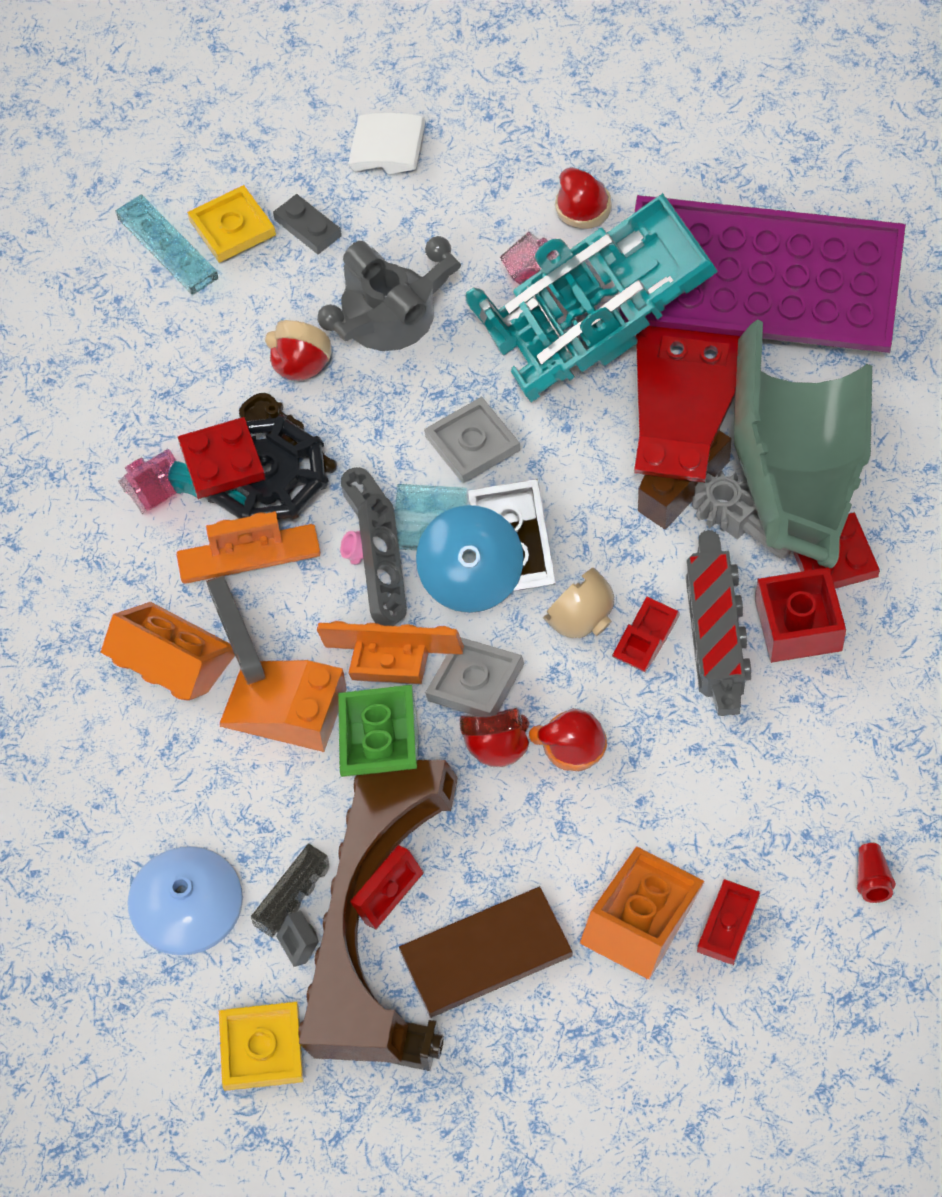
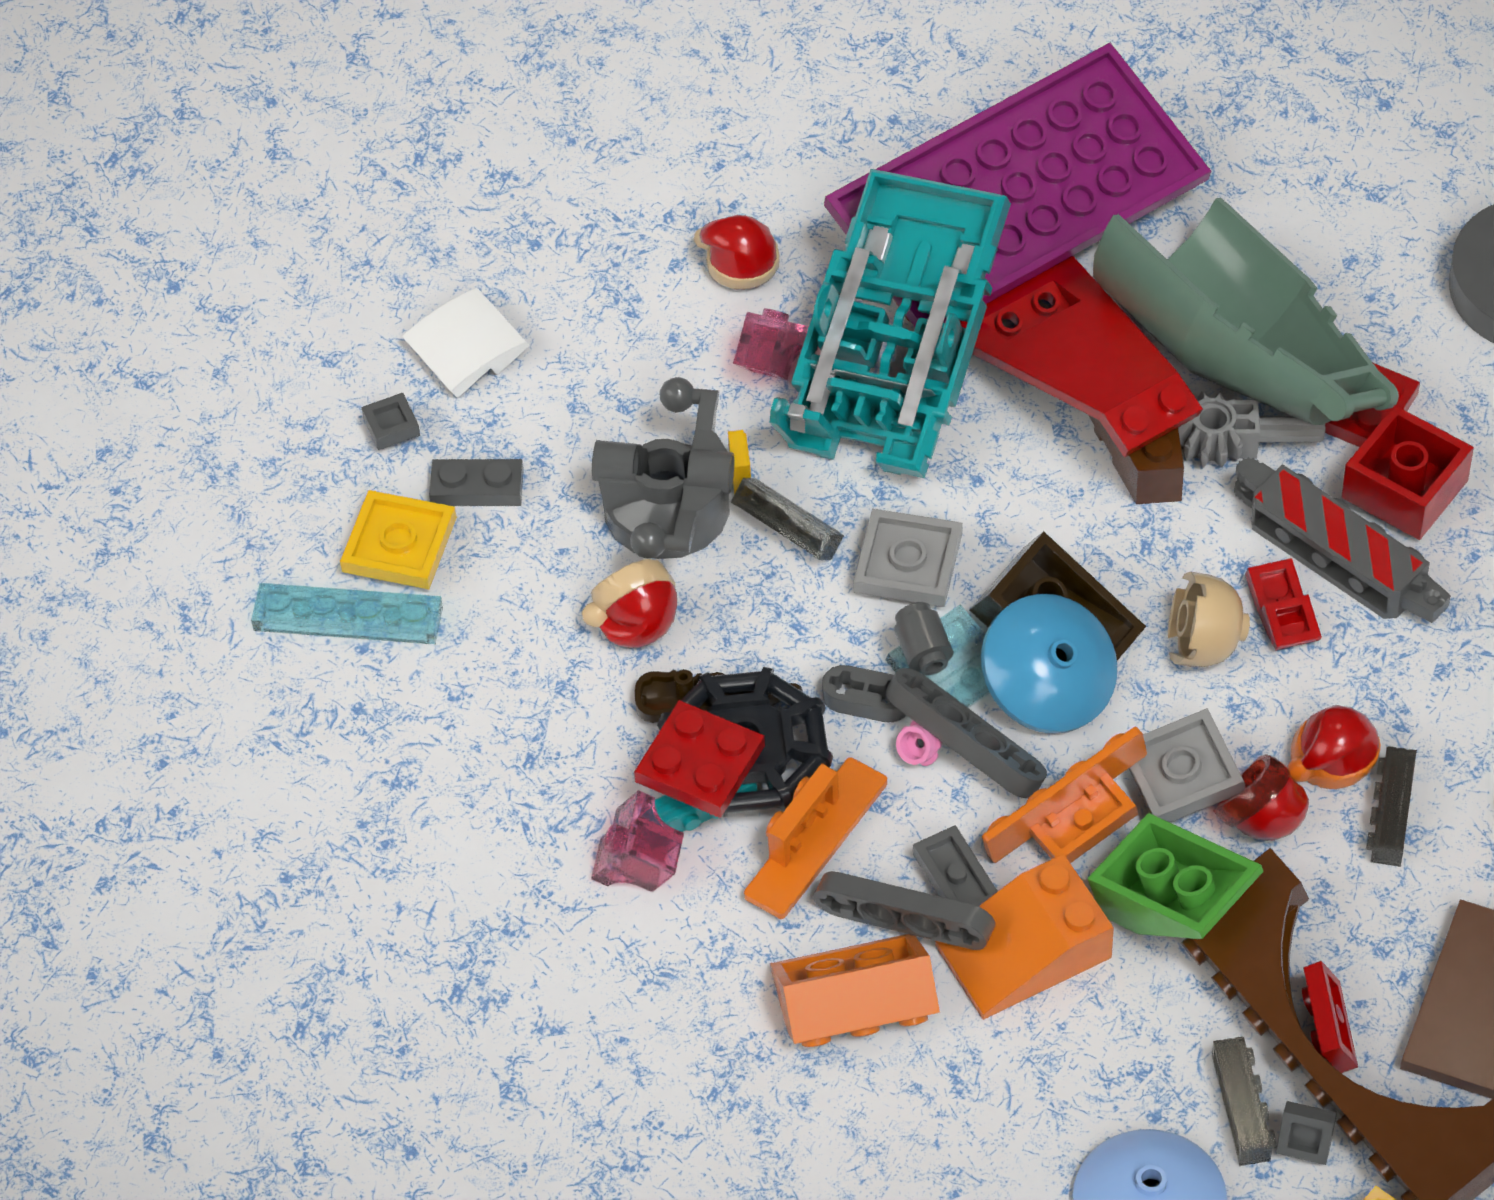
camera: 45 degrees left, 5 degrees down
(291, 631) = (953, 867): none -> dark grey plate
(300, 157) = (390, 421): none -> dark grey plate
(415, 488) = (923, 638): none -> dark grey brick
(434, 367) = (787, 518): none -> clear smoke piece
(444, 315) = (738, 445): none -> yellow tile
(568, 801) = (1393, 806): none -> clear smoke piece

